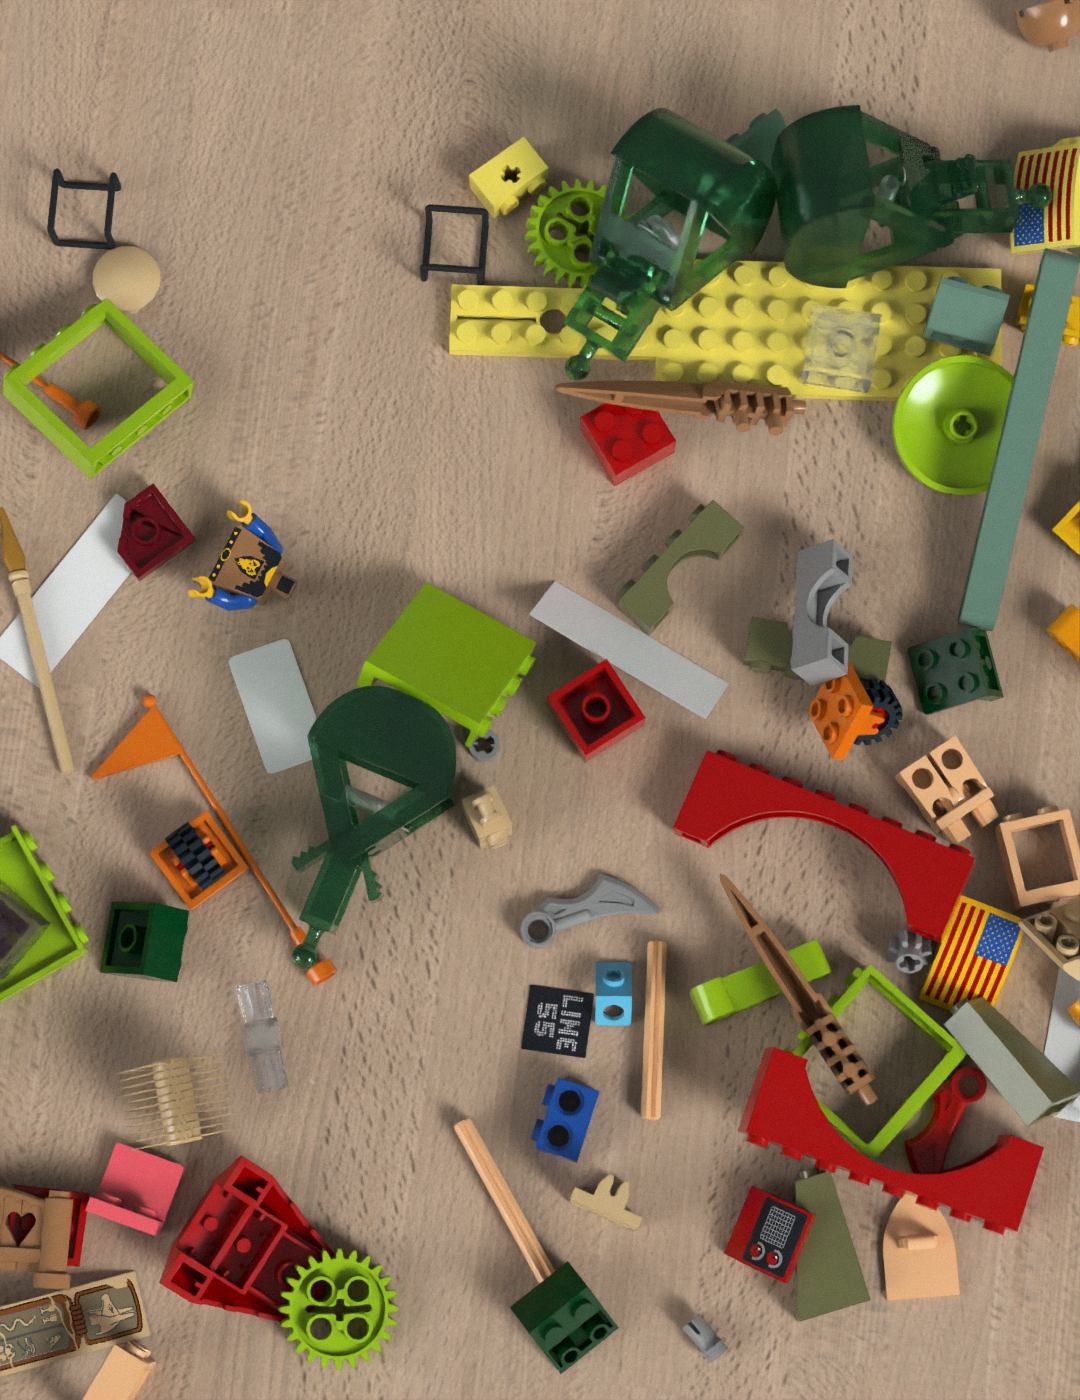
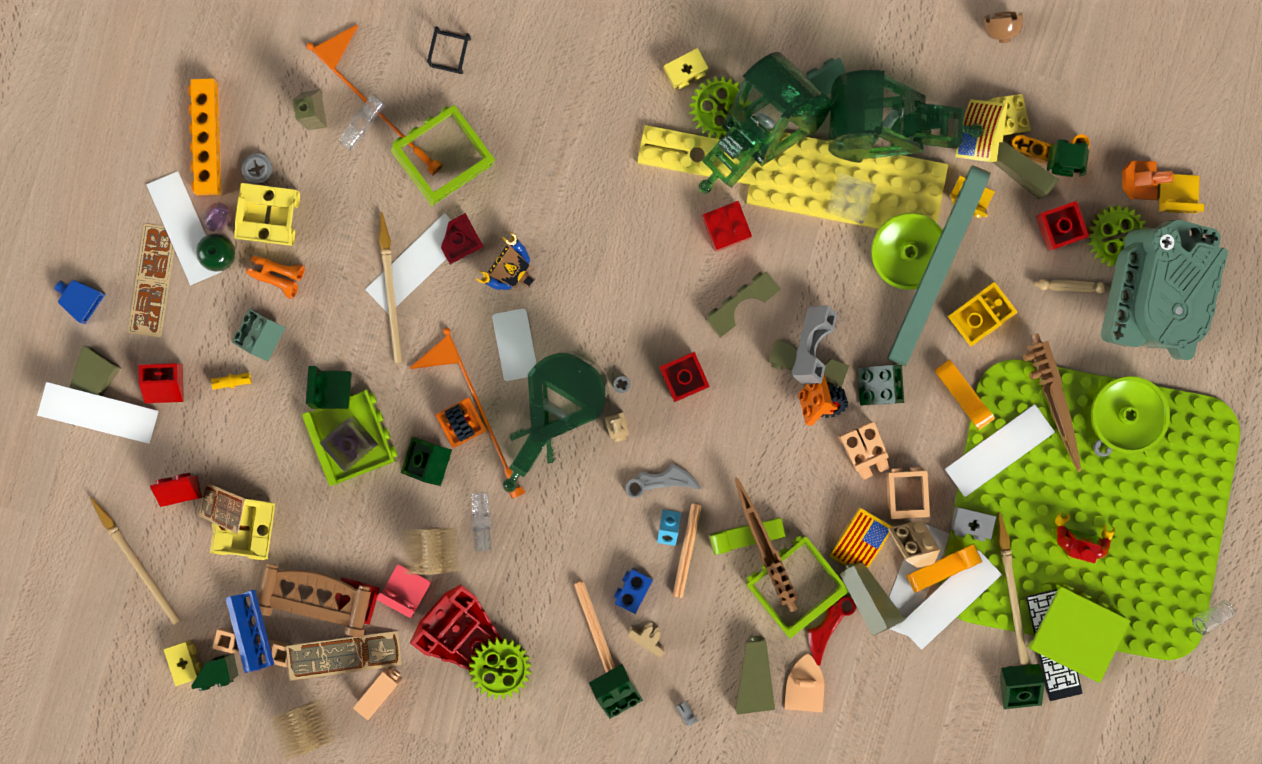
camera: 10 degrees right, 10 degrees up
(127, 278) = (467, 92): tan dish -> none
(425, 266) = (661, 121): black piece -> none
(451, 659) = (611, 339): lime panel -> none
(557, 1021) = (637, 537): black sticker -> none
(629, 649) = (708, 345): white sticker -> none
(735, 795) = (750, 434): red arch -> none
(740, 400) = (791, 218): medium nougat piece -> none
(769, 1234) = (729, 667): slope -> none
(788, 1115) = (845, 661): red arch -> none
(908, 951) = (828, 531): light grey gear -> none
(966, 315) = (923, 191): sand green slope -> none

